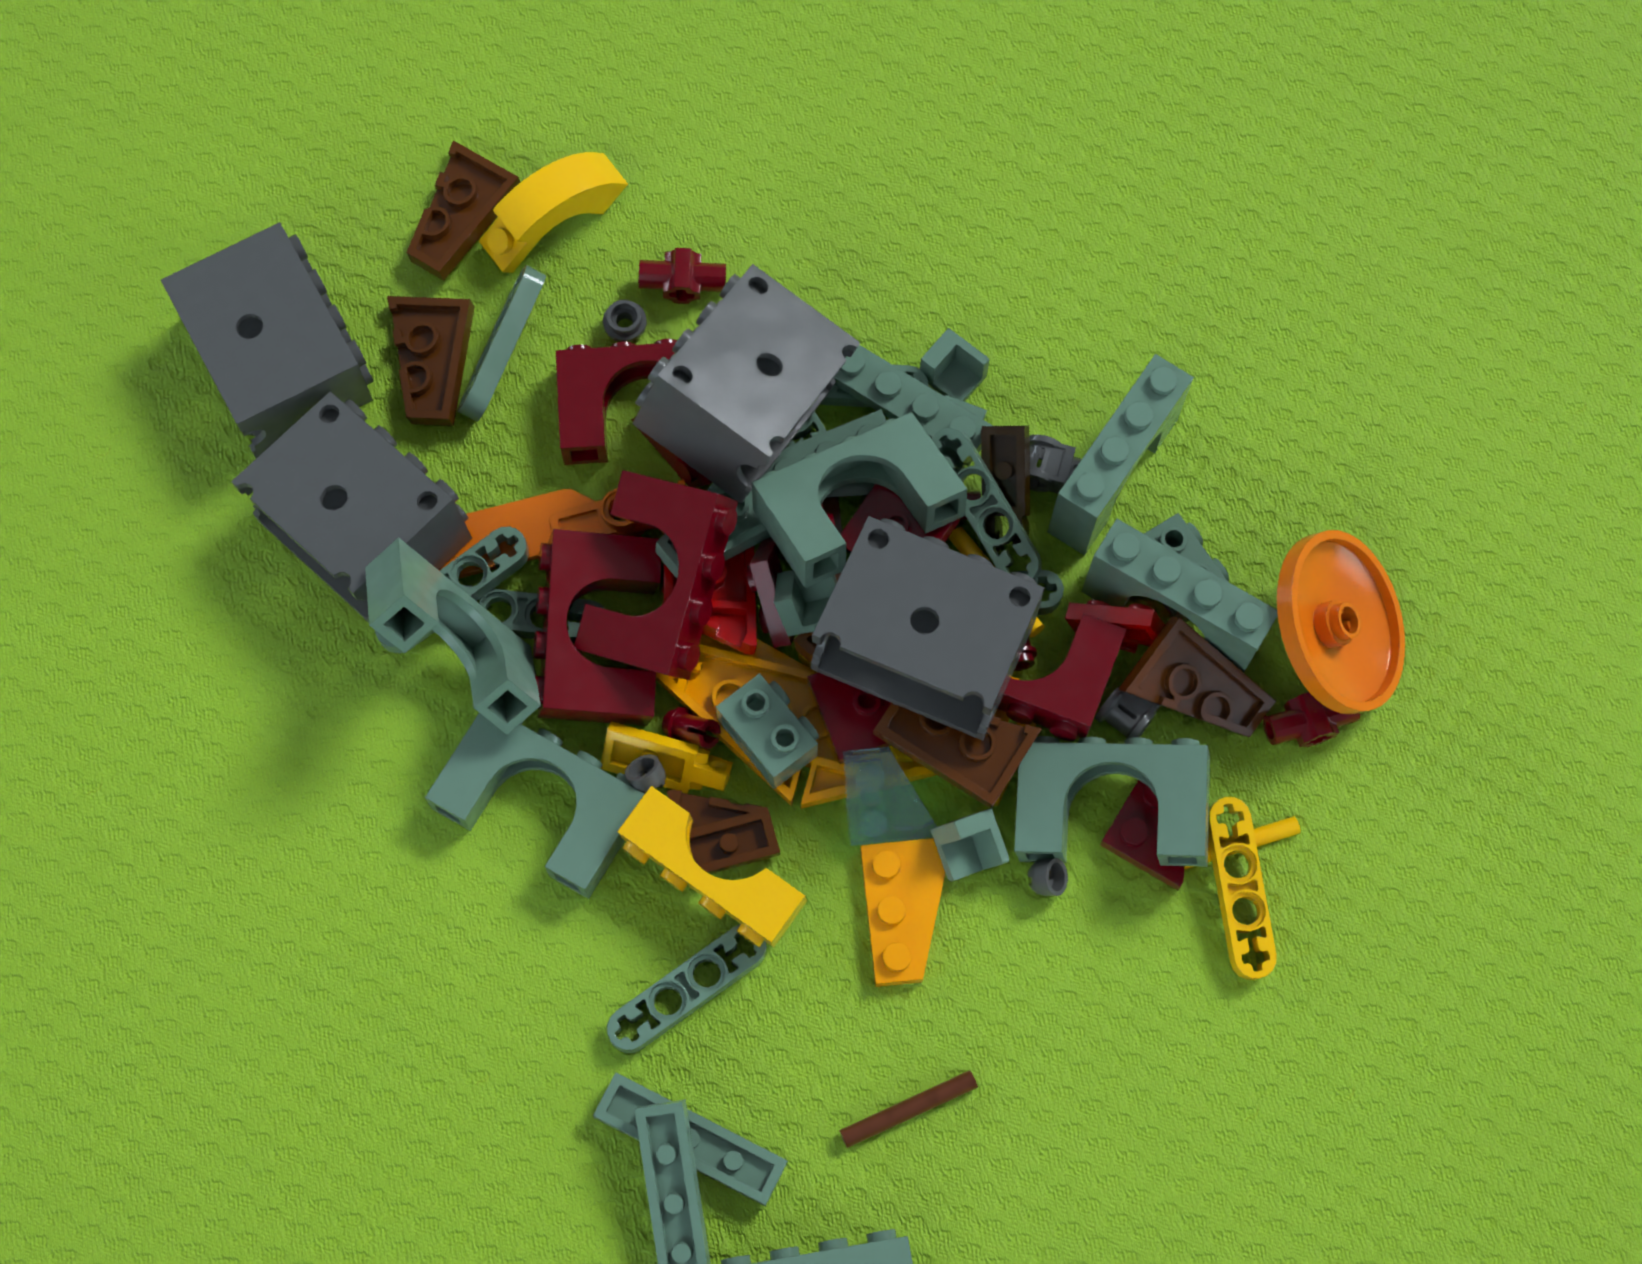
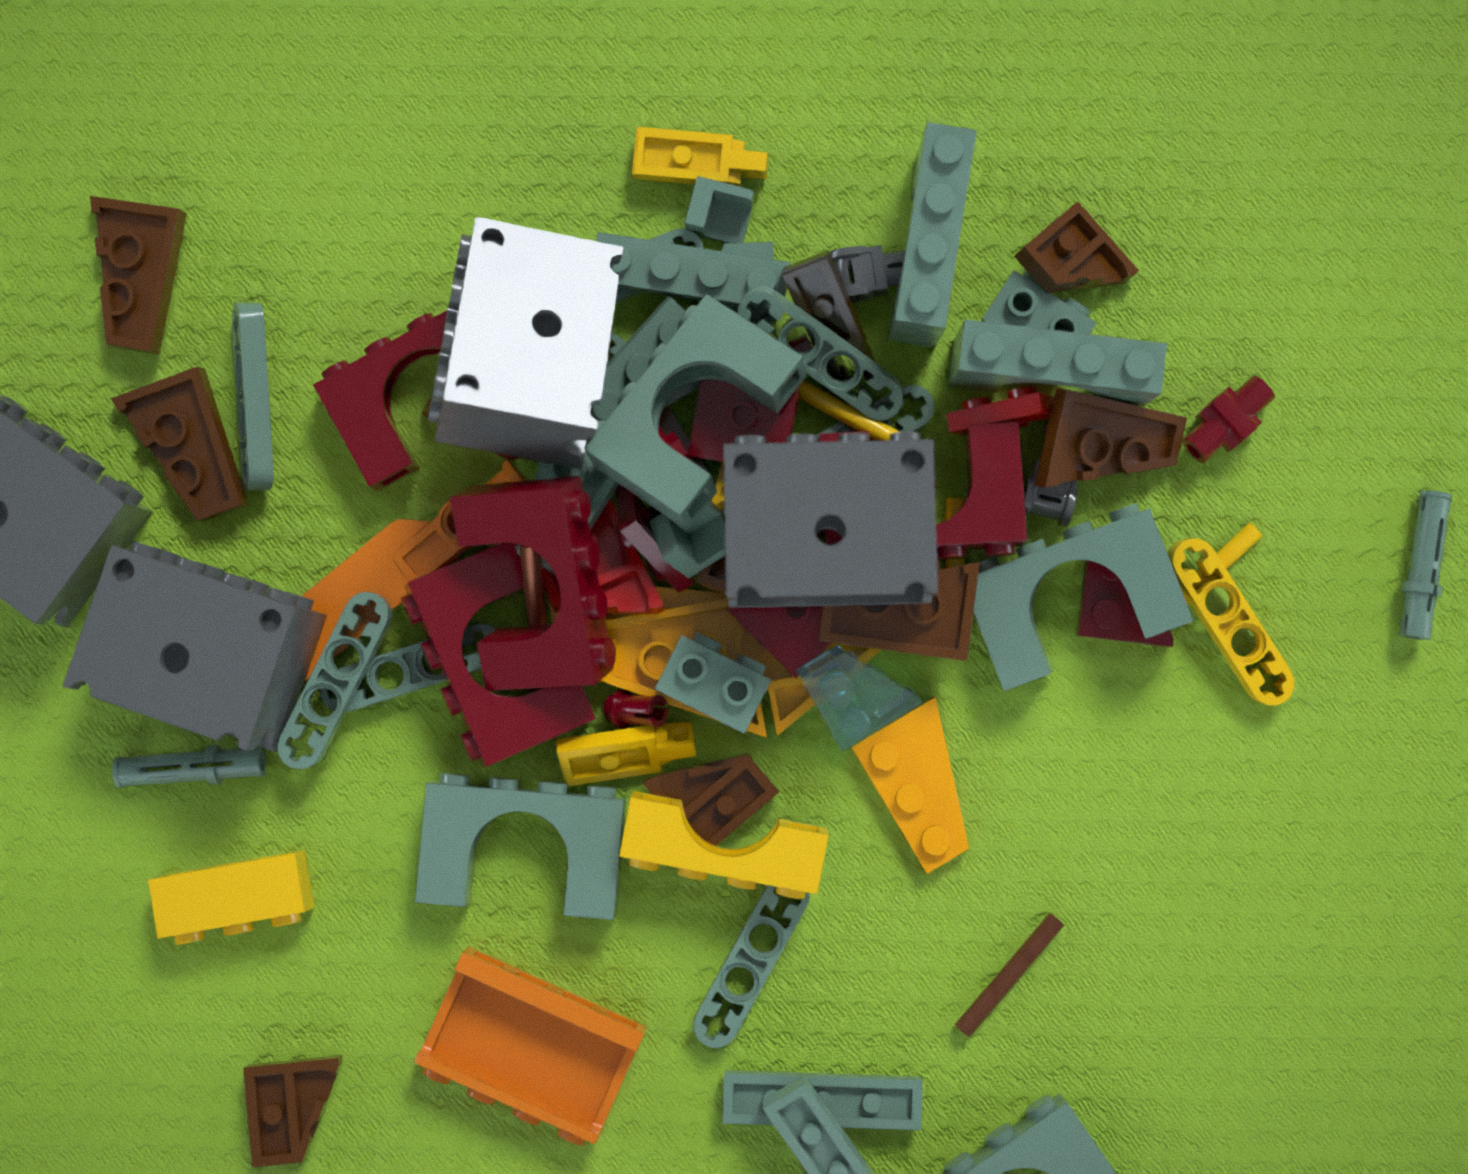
camera: 15 degrees left, 15 degrees up
(225, 927) = (286, 1106): none -> reddish brown wing
(274, 727) = (231, 897): none -> yellow brick
(313, 615) = (134, 770): none -> sand green pin
(413, 597) = (305, 728): sand green arch -> none
(460, 973) = (530, 1046): none -> orange panel
(545, 199) = (224, 221): yellow arch -> none
(624, 310) = (353, 303): dark grey plate -> none
(645, 772) = (605, 774): dark grey hinge -> none
(657, 576) = (533, 587): none -> copper bar
(682, 275) = (398, 238): dark red axle -> none
(938, 309) = (684, 155): none -> yellow hinge
(970, 844) = (955, 700): sand green panel -> none
(1048, 877) = (1043, 695): dark grey hinge -> none
(1236, 526) = (1075, 255): none -> reddish brown wing
(1340, 622) = (1223, 316): orange dish -> none
(1426, 933) = (1424, 572): none -> sand green pin

